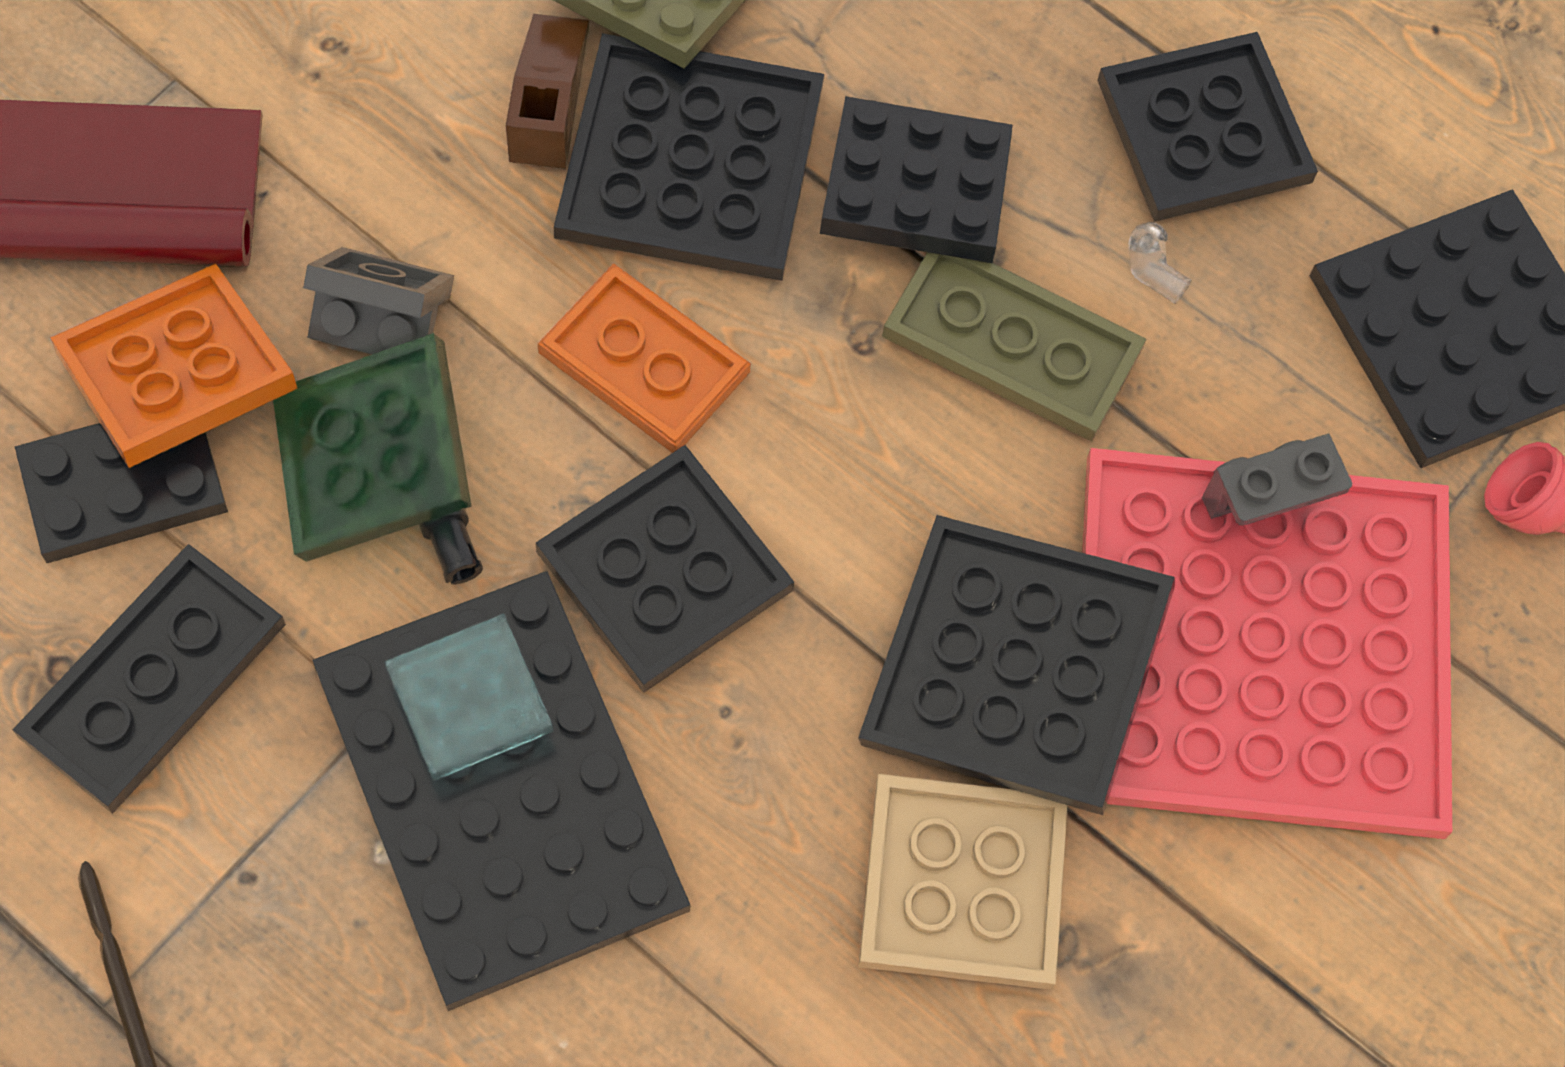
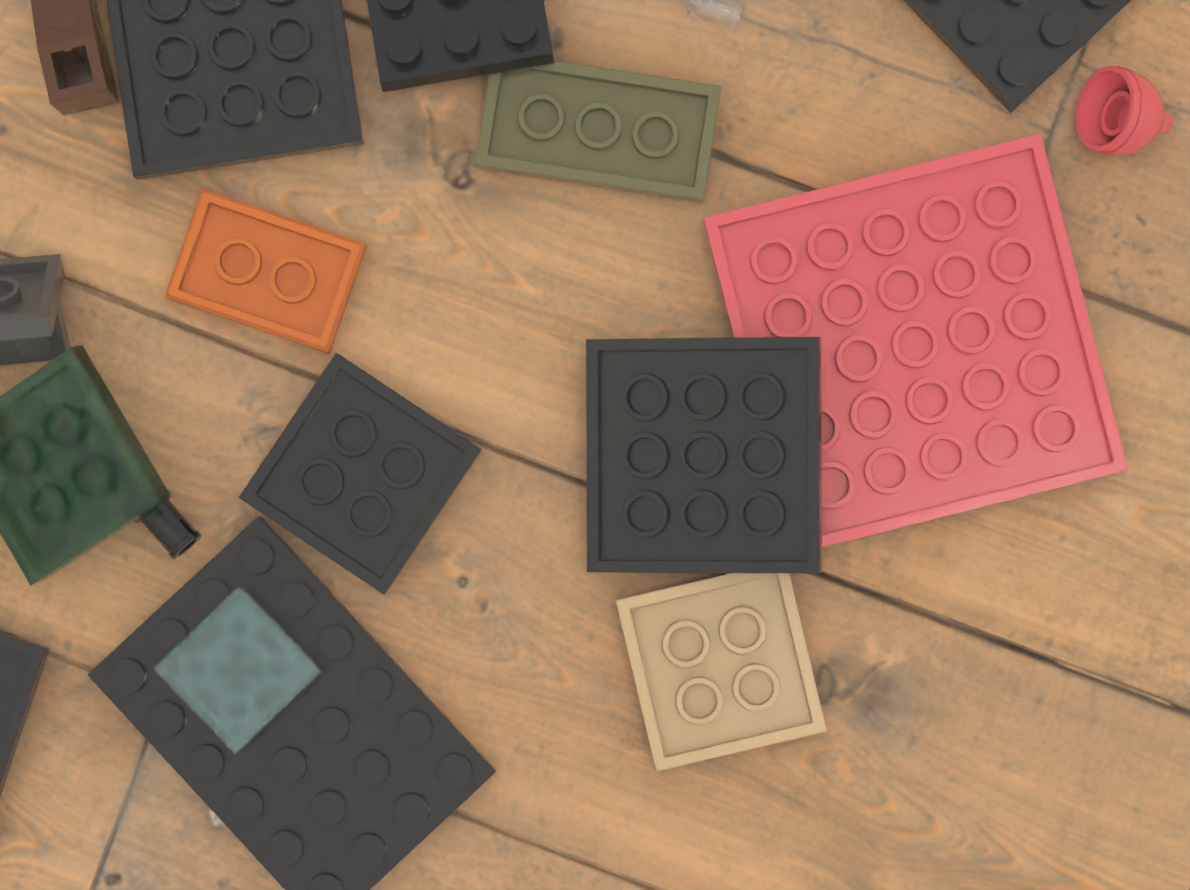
camera: 15 degrees left, 20 degrees up
(1277, 481) = (886, 210): dark grey bracket -> none

